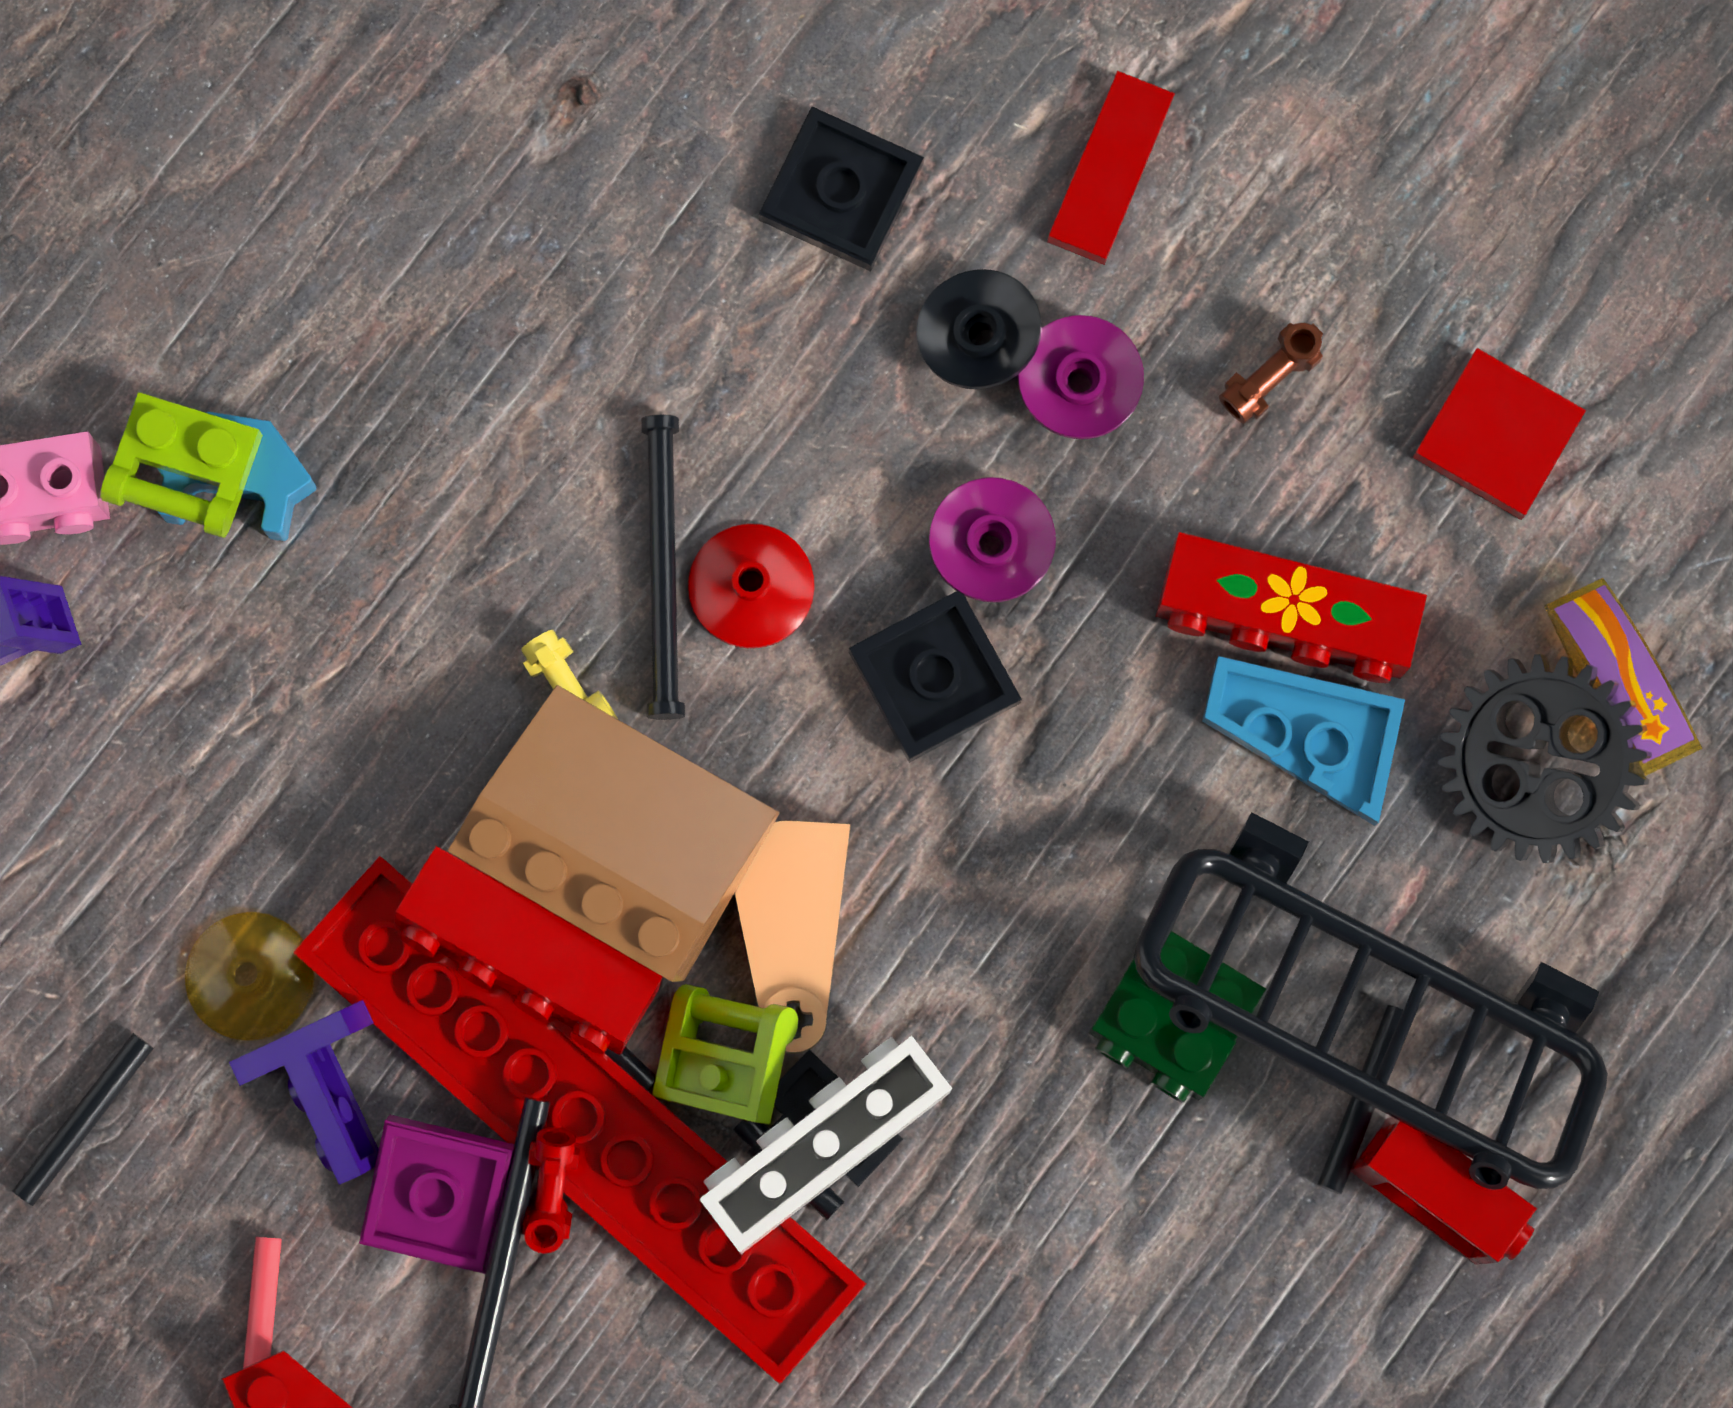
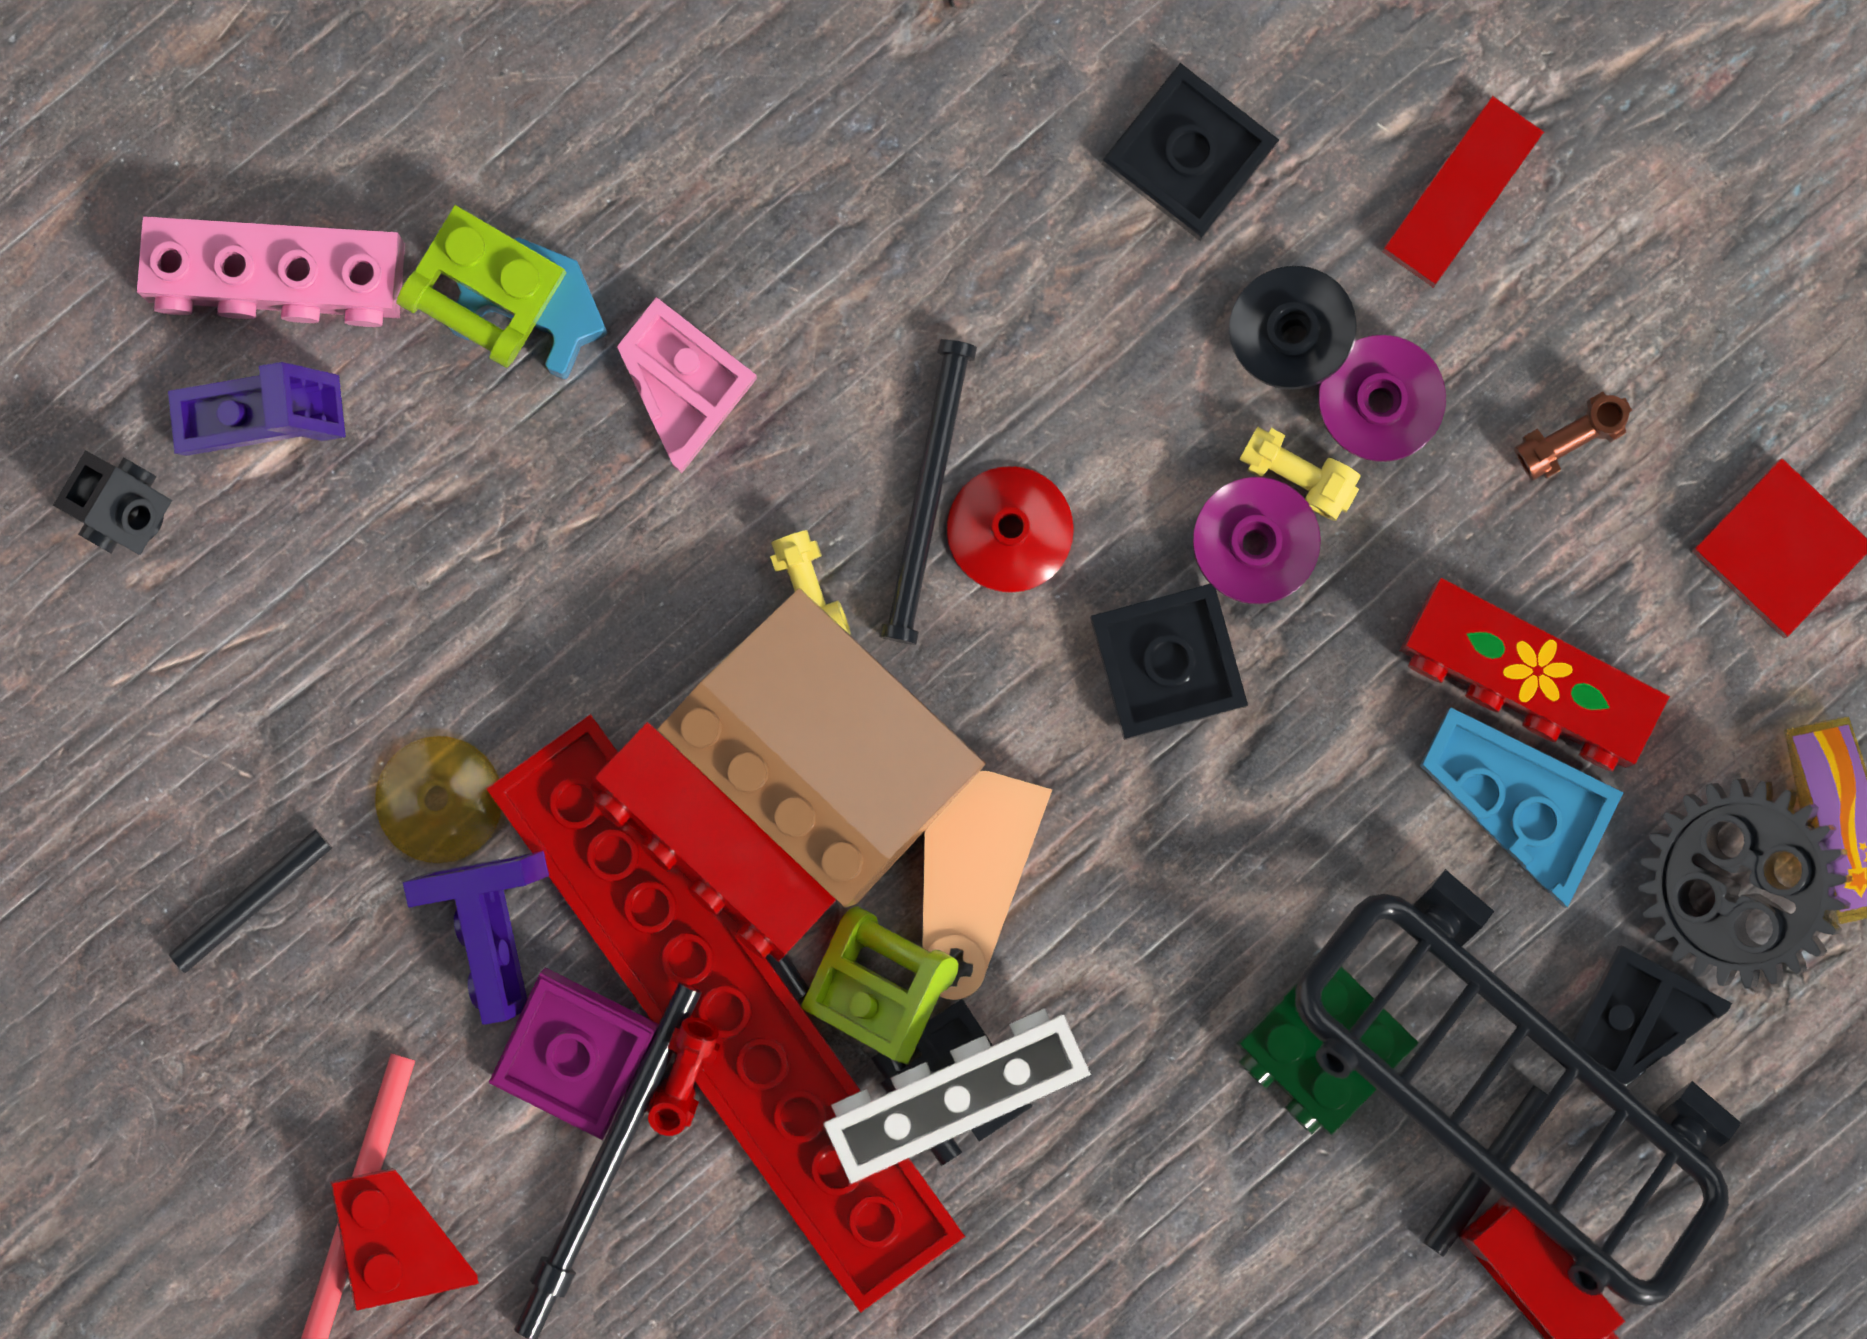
camera: 15 degrees right, 5 degrees up
(399, 513) = (682, 380): none -> bright pink wing
(1050, 475) = (1329, 488): none -> light yellow bar
(1477, 910) = (1642, 1015): none -> black wing

